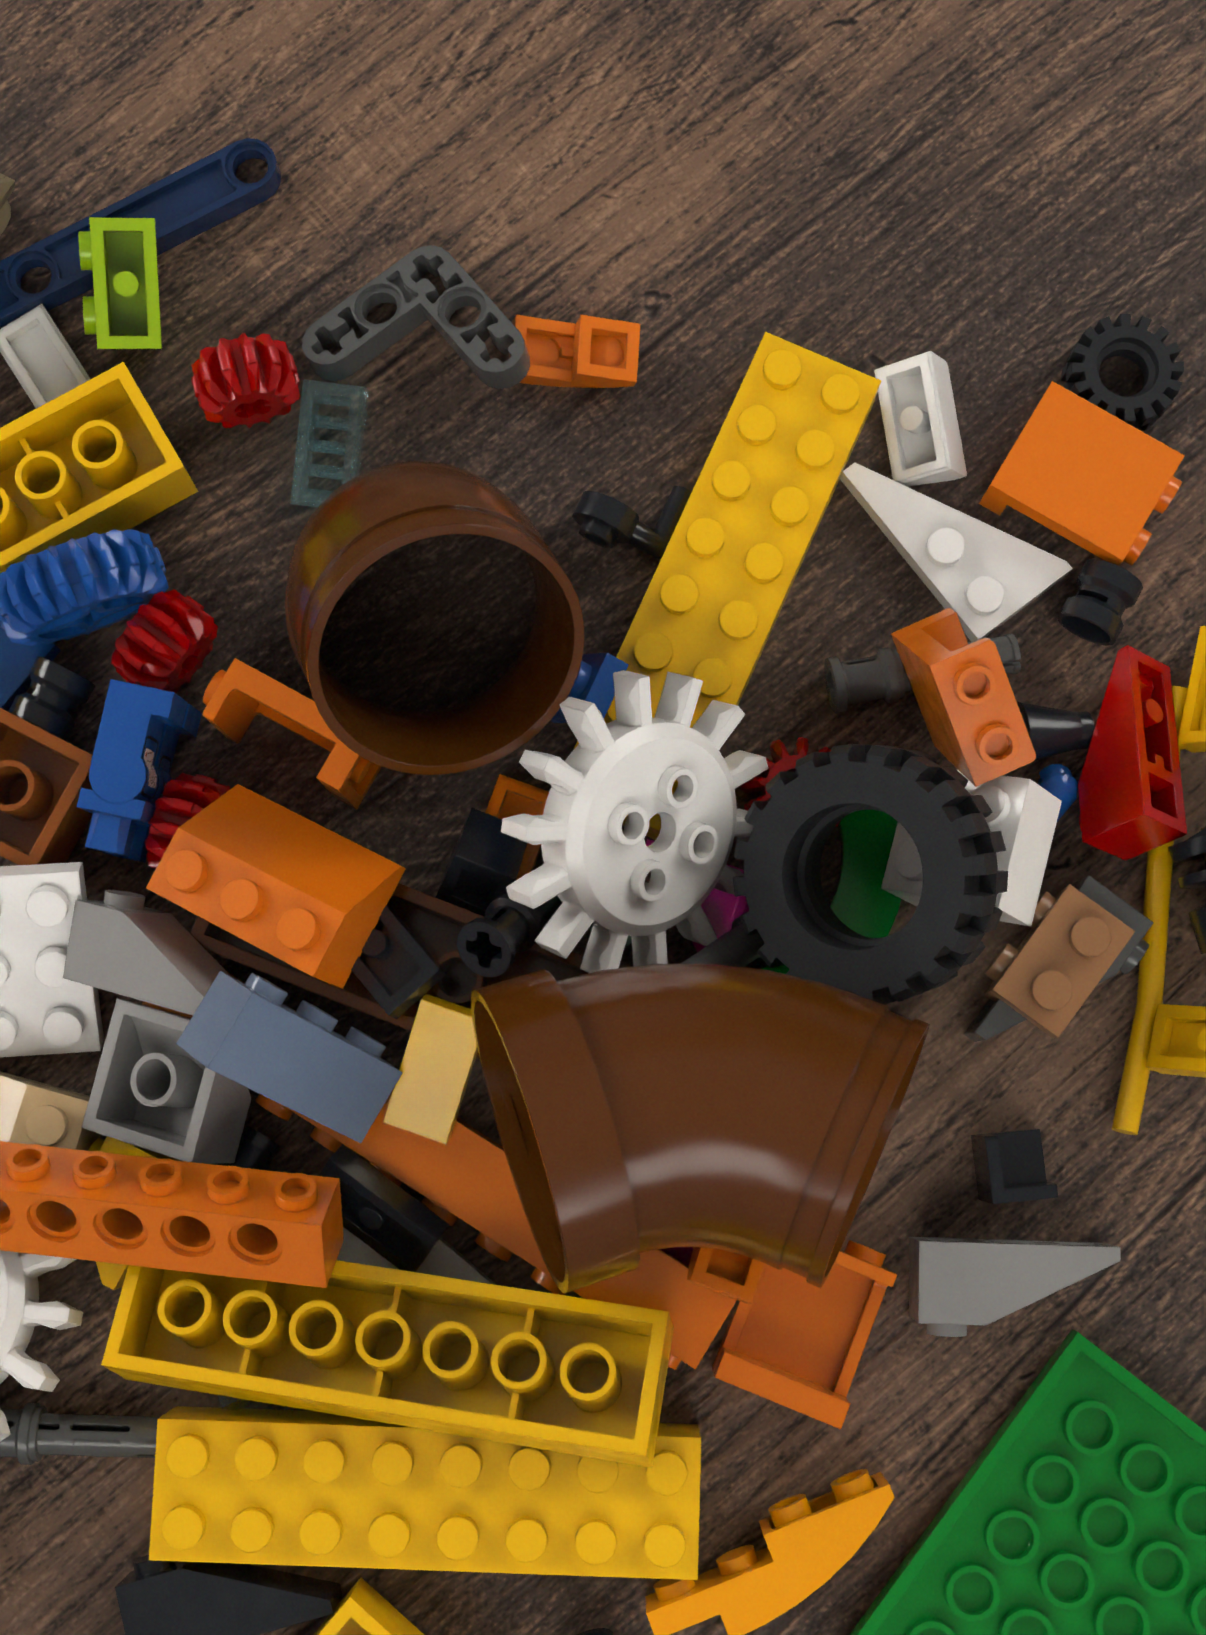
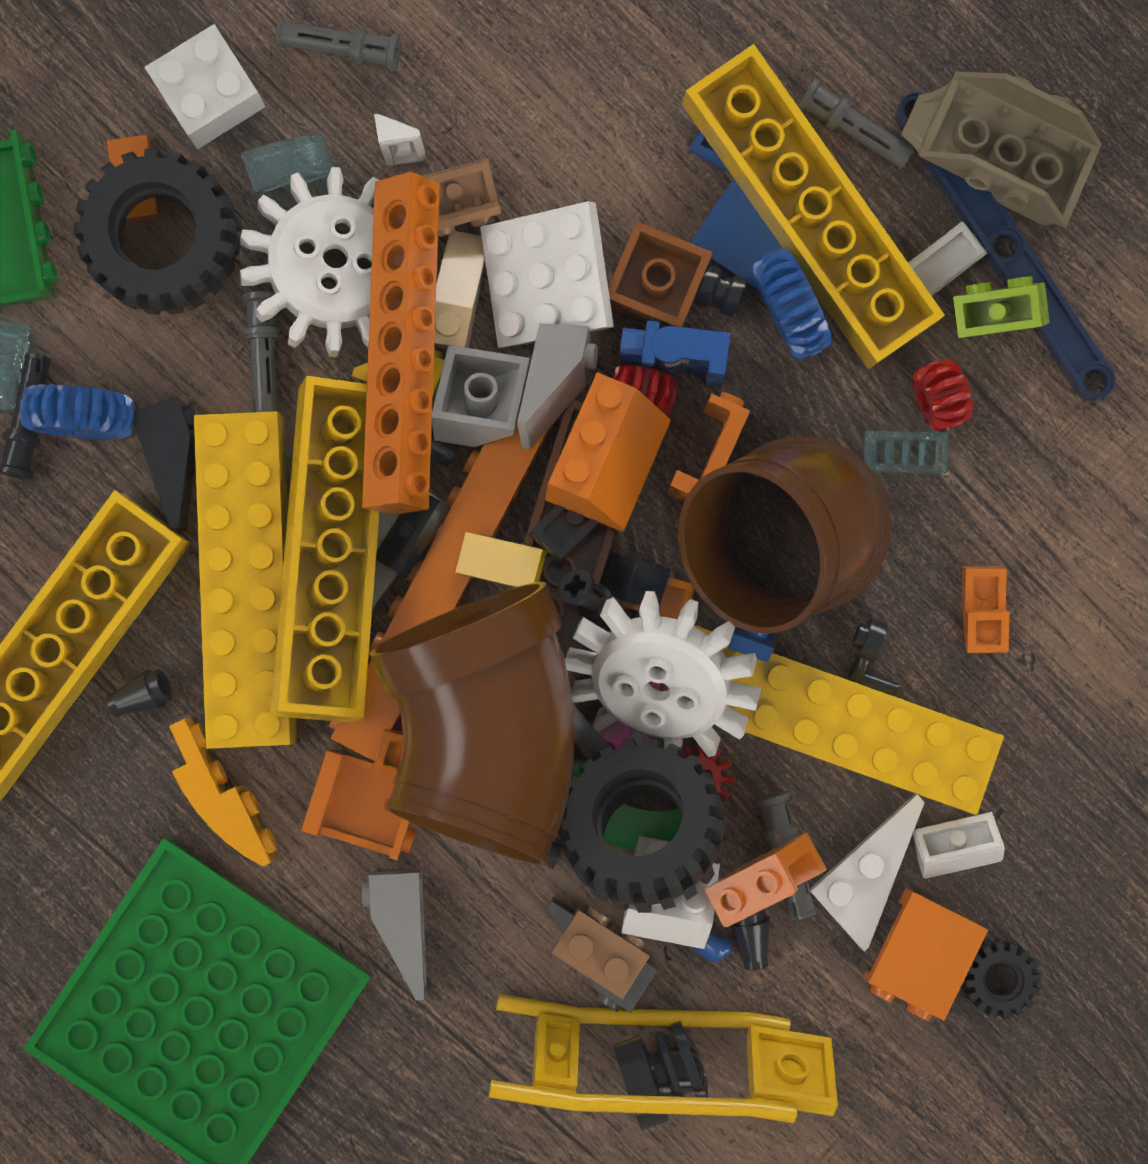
camera: 80 degrees right, 5 degrees up
(165, 642) = (760, 361): red gear -> none
(290, 1054) = (501, 473): sand blue brick -> none
(417, 302) = (1009, 501): dark grey beam -> none
(1011, 1167) = (469, 930): black panel -> none
(1100, 602) = (842, 970): black wheel -> none
(1132, 767) = (732, 996): red slope -> none

